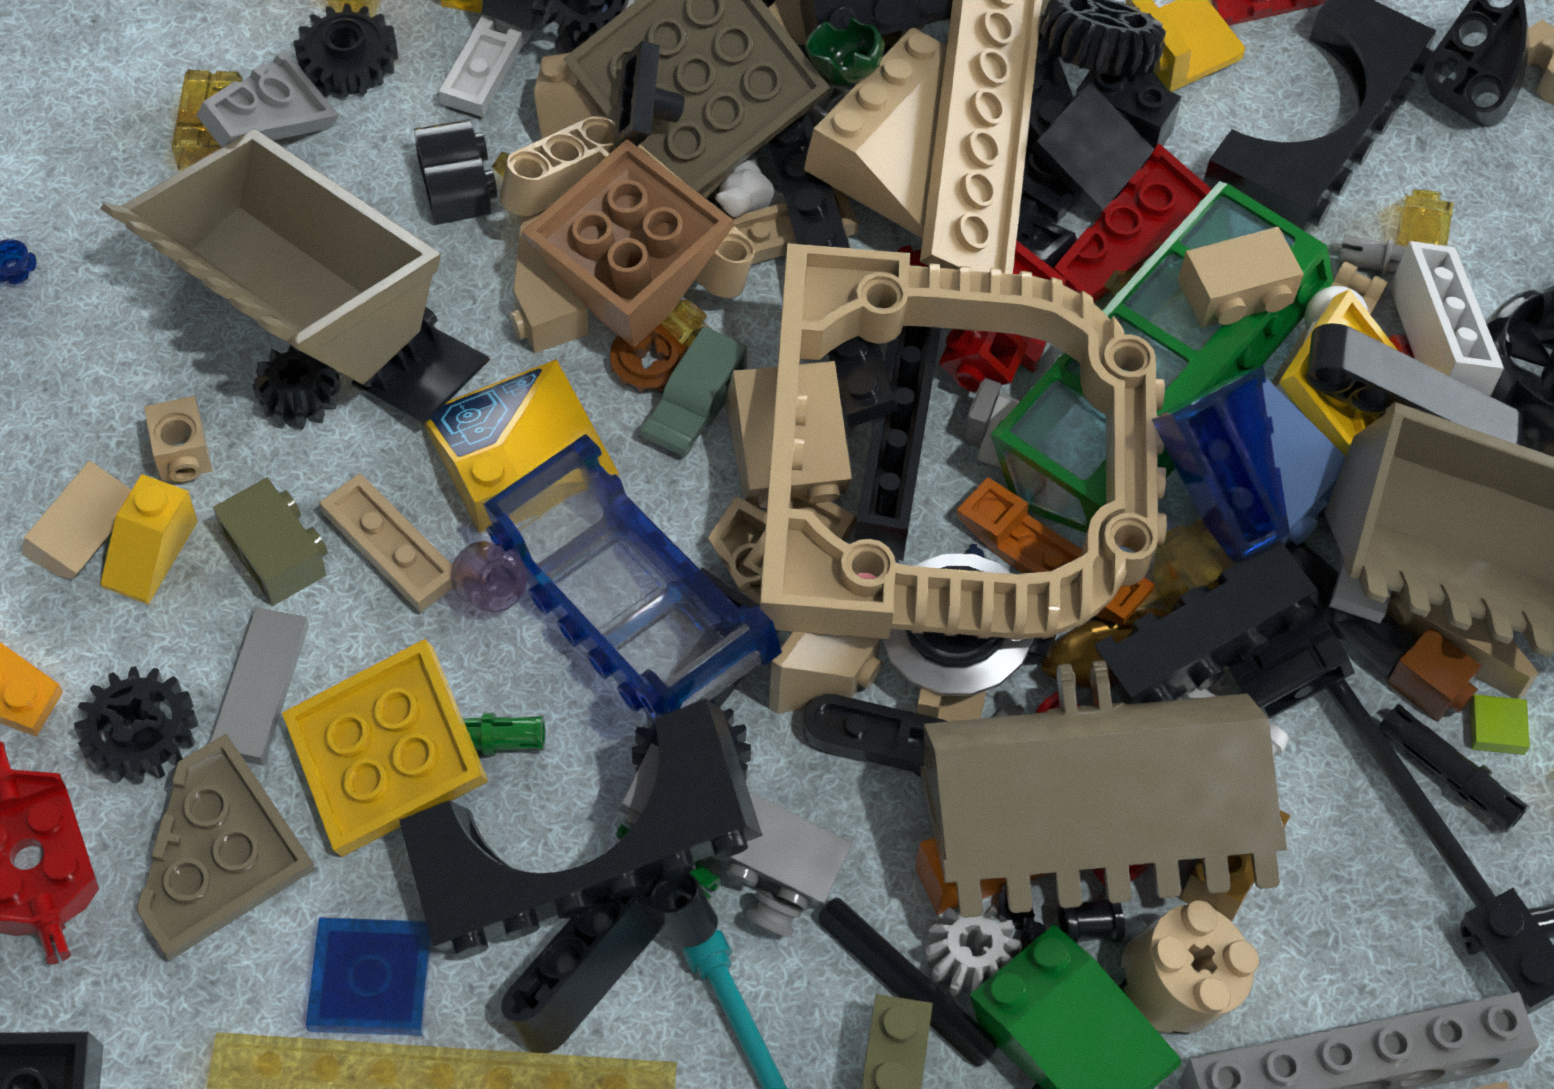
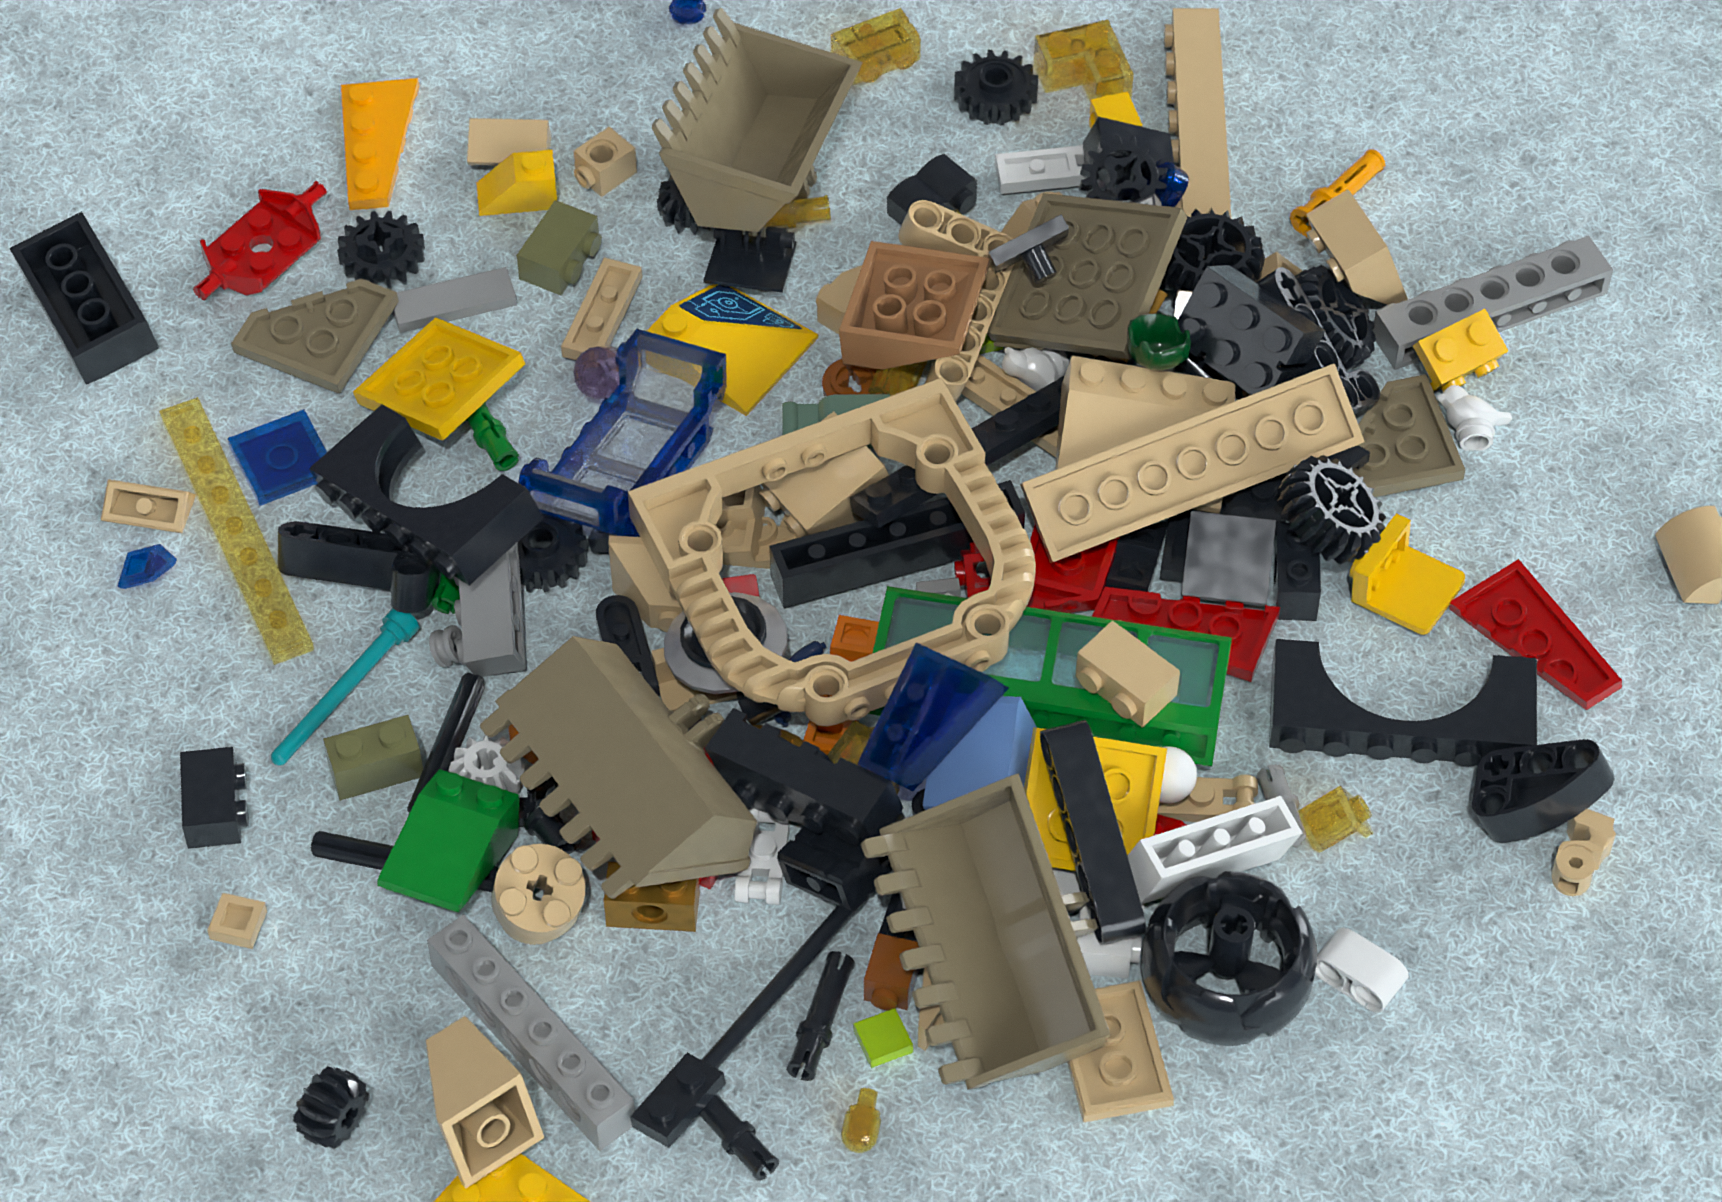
camera: 65 degrees right, 5 degrees down
(273, 100) = (902, 66): light grey wing -> none

